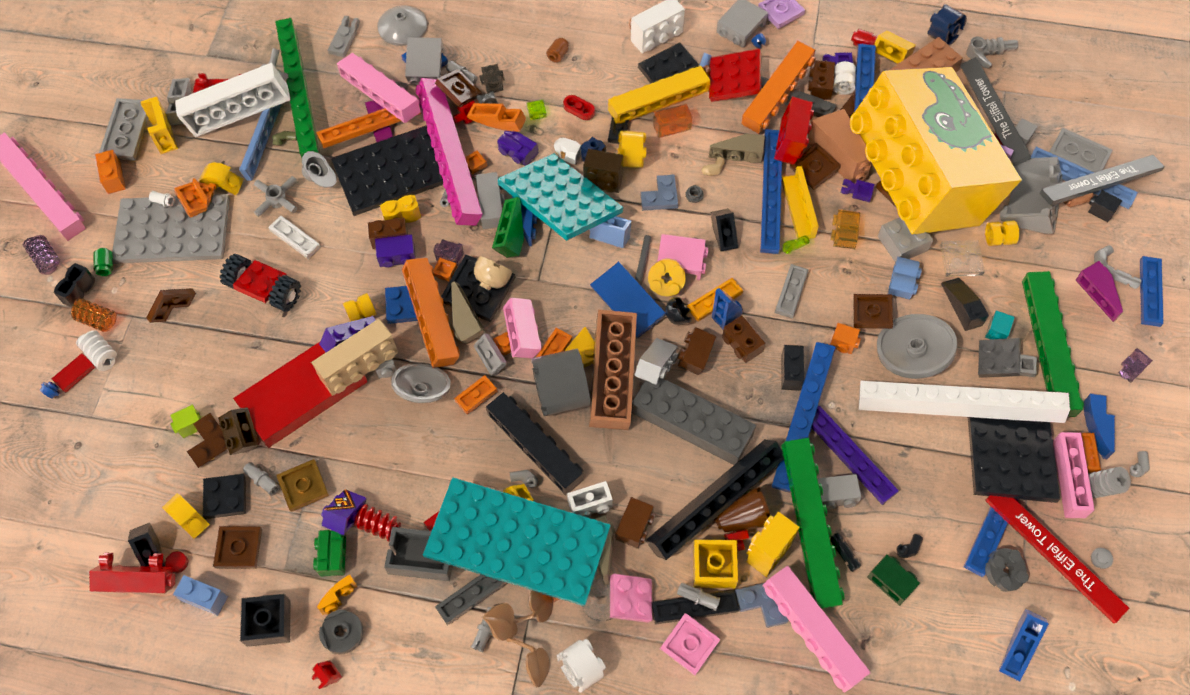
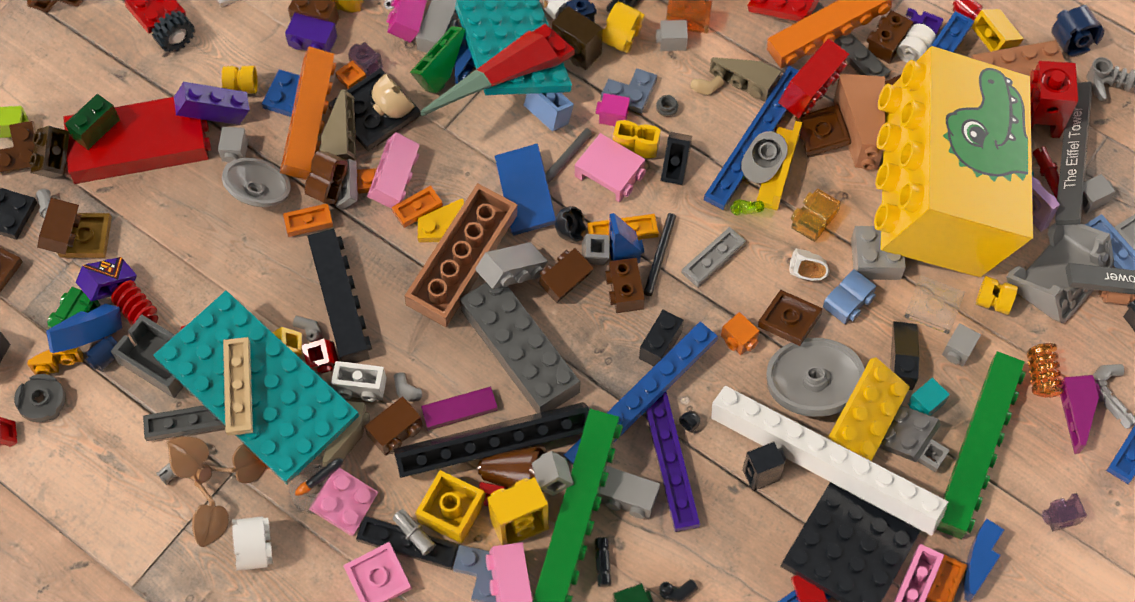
camera: 25 degrees right, 0 degrees up
(263, 391) = (92, 121): none -> dark green brick
(282, 487) = (58, 226): none -> reddish brown brick
(350, 559) = (84, 328): none -> blue slope
(355, 357) = (199, 125): tan brick -> none
(373, 572) = (100, 354): none -> dark blue brick
(474, 355) = (326, 177): none -> reddish brown brick
(509, 548) = (237, 386): none -> tan plate
(549, 494) = (320, 355): none -> red brick
(560, 382) = (395, 242): dark grey brick -> none
(579, 198) = (526, 55): none -> red plate
(597, 601) = (306, 486): none -> black piece
(625, 492) = (409, 392): none -> light grey arm
(658, 213) = (612, 109): none -> dark pink brick
(669, 140) = (672, 35): none -> light grey brick
(674, 486) = (459, 408): none -> magenta tile
(675, 271) = (566, 182): yellow plate -> none
(694, 226) = (639, 139): none -> yellow brick
(708, 320) = (596, 248): none -> light grey brick
(752, 304) = (659, 255): none -> black bar
(783, 500) = (552, 473): none -> light grey brick
(790, 202) = (764, 157): none -> light grey piece
(846, 418) = (690, 420): none -> black hinge
(861, 190) = (857, 178): dark purple plate -> none
(862, 268) = (808, 265): none -> rock
(920, 427) = (764, 466): none -> black brick
(968, 69) = (1053, 88): none -> red torso
(970, 352) = (869, 410): none -> yellow plate
(998, 278) = (961, 345): none -> light grey brick
(1062, 272) = (1043, 370): none -> clear orange piece

